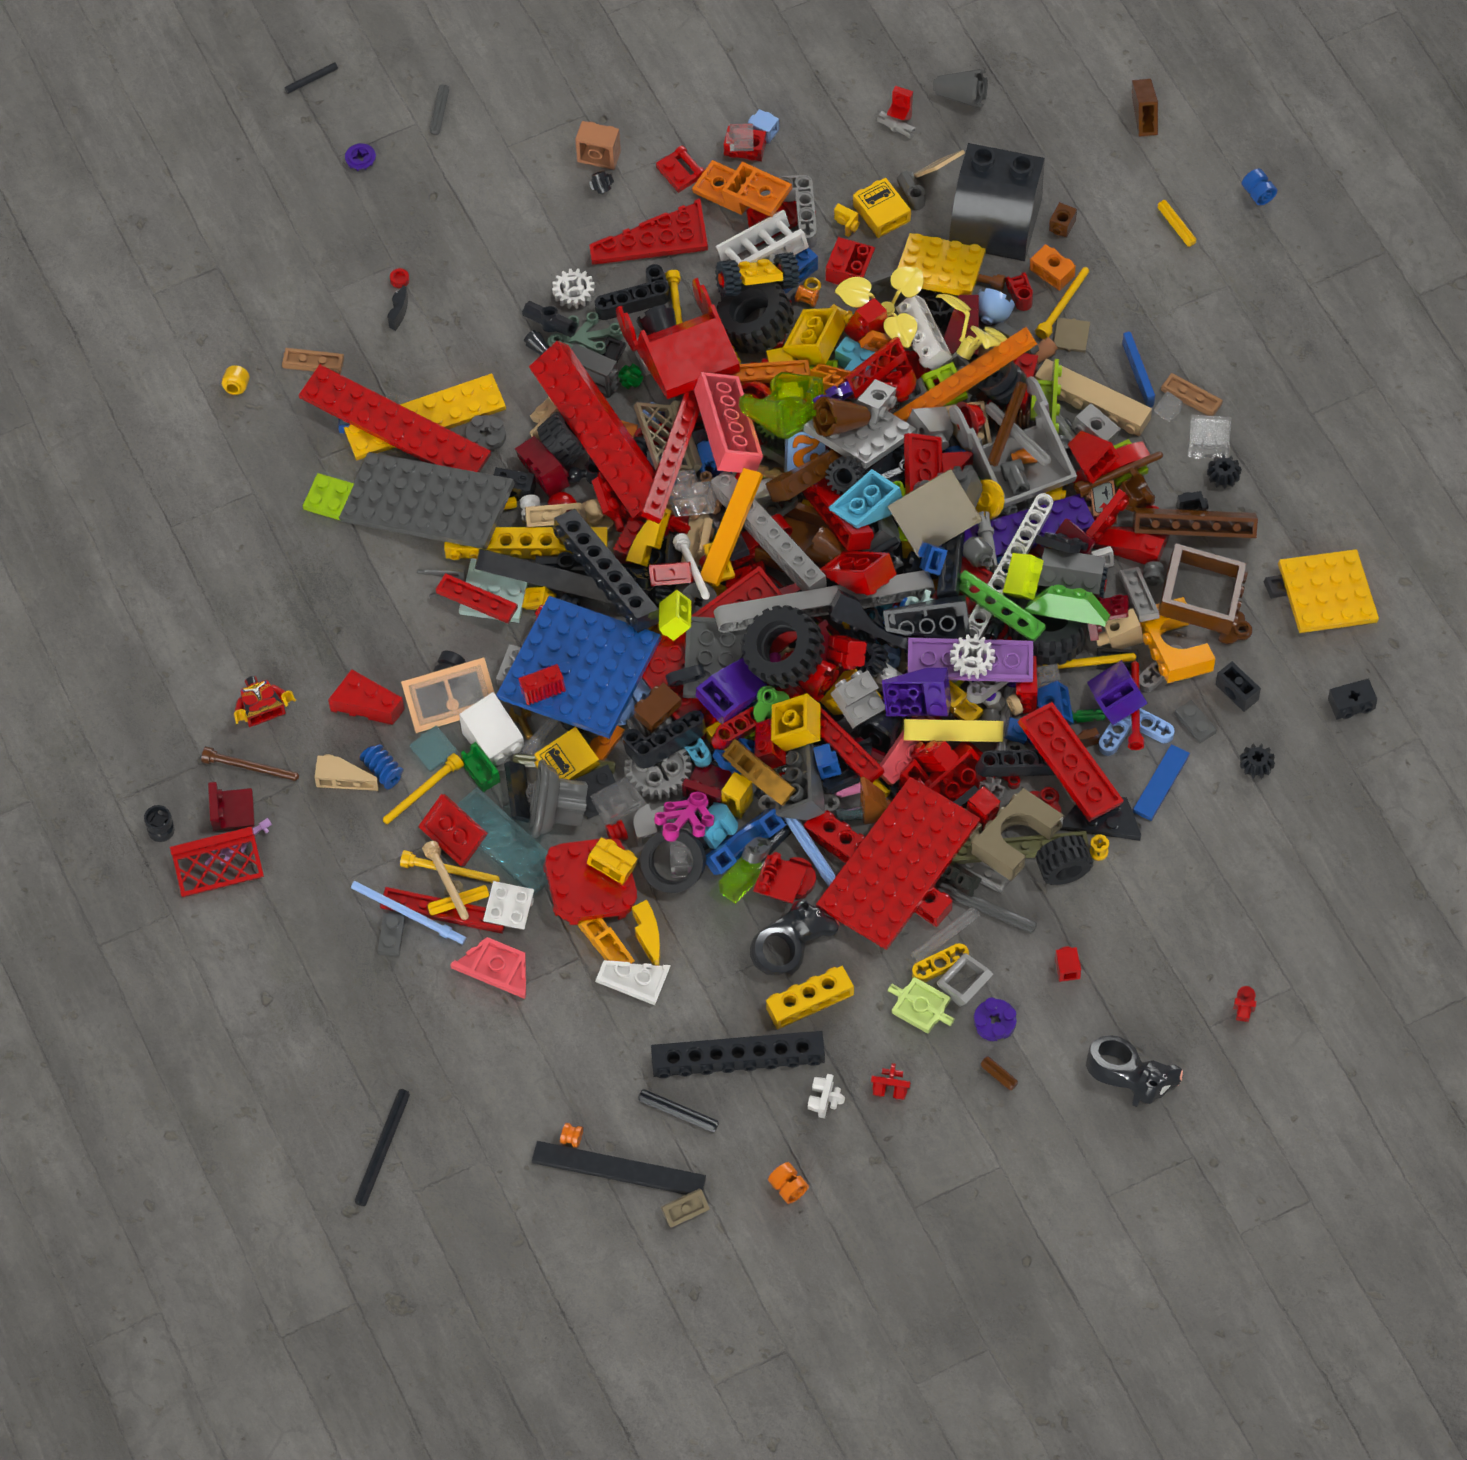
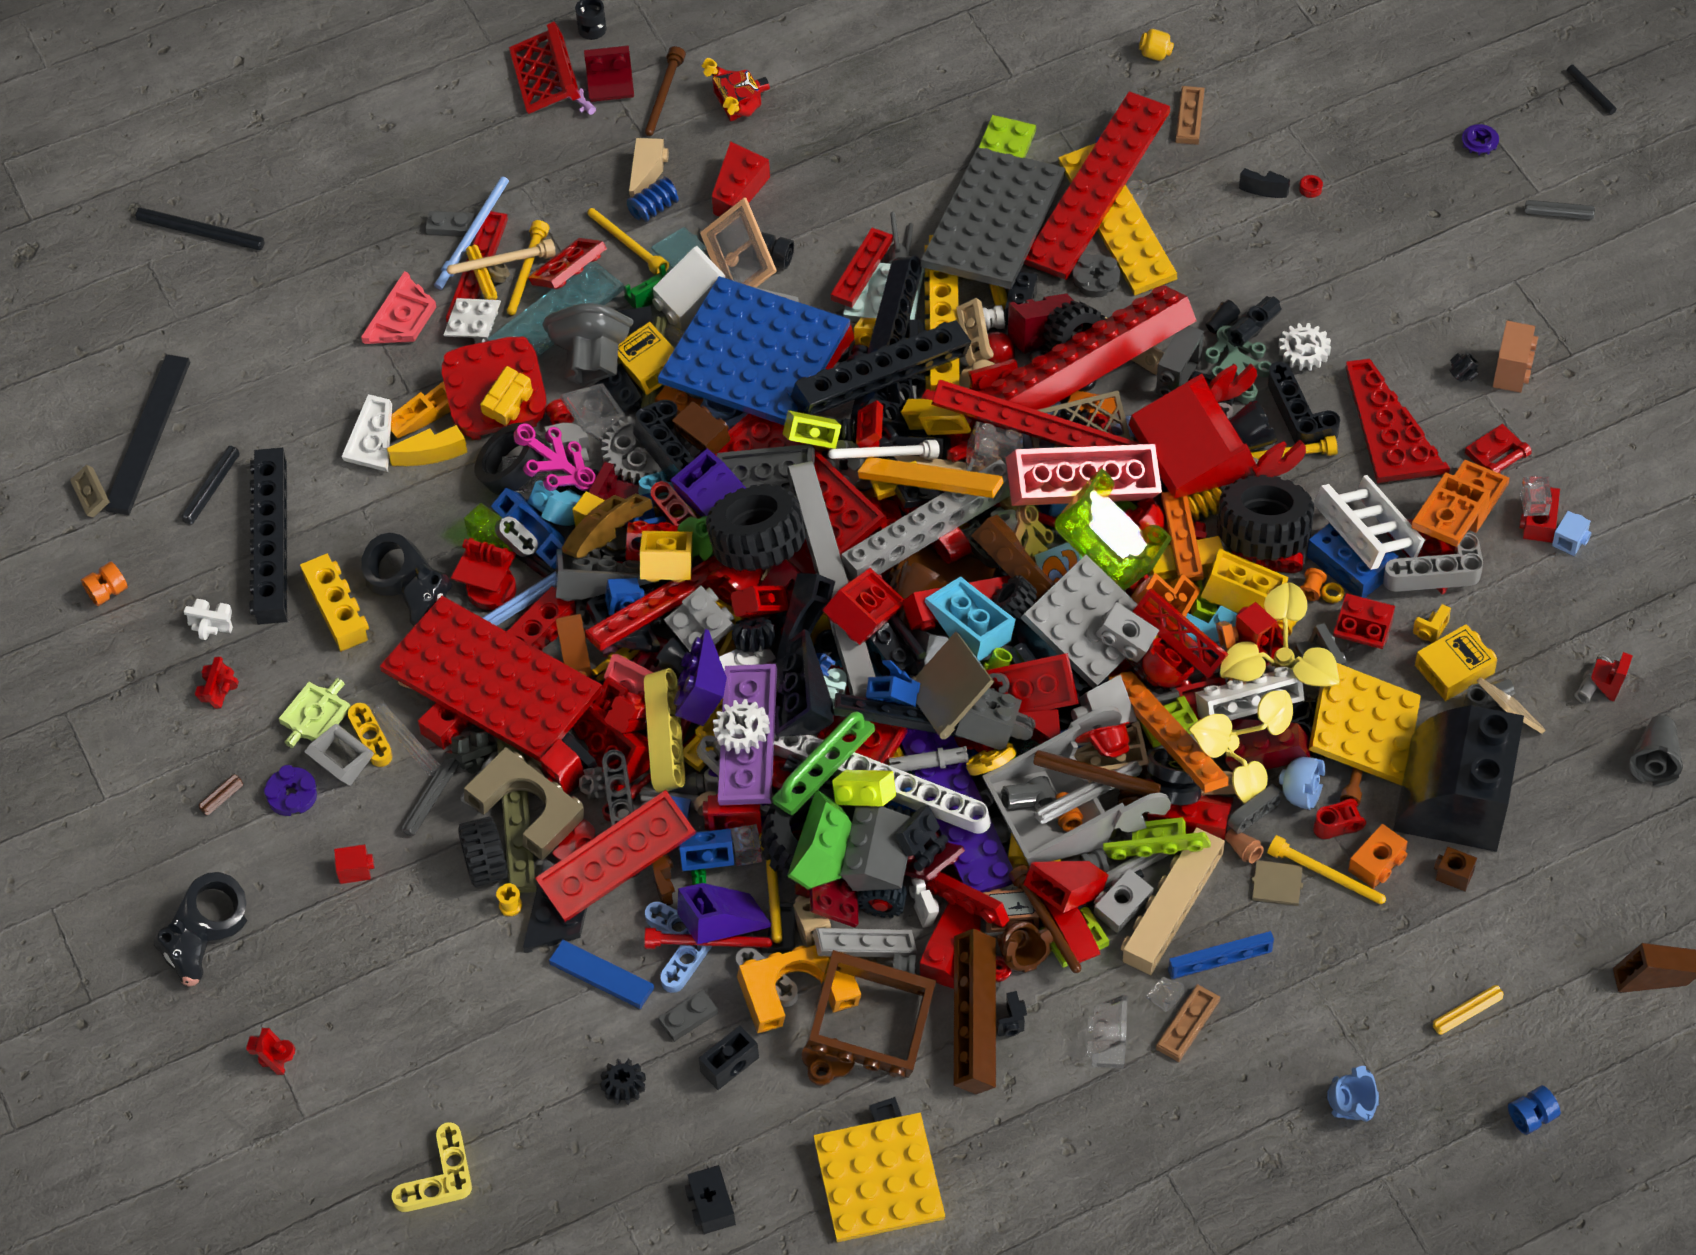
camera: 90 degrees right, 5 degrees down
(542, 684) = (717, 305): red brick -> none
(571, 1135) = (190, 386): orange wheel -> none
(685, 675) = (733, 446): black beam -> none
(731, 274) = (1311, 503): plate -> none
(838, 416) = (1087, 582): reddish brown cone -> none
(843, 392) = (1129, 586): dark purple plate -> none
(977, 551) = (904, 741): dark grey head -> none
(1224, 471) = (1067, 1045): black gear -> none
(1253, 292) = (1354, 1095): none -> medium blue helmet
(1343, 881) = (445, 1182): none -> light yellow beam

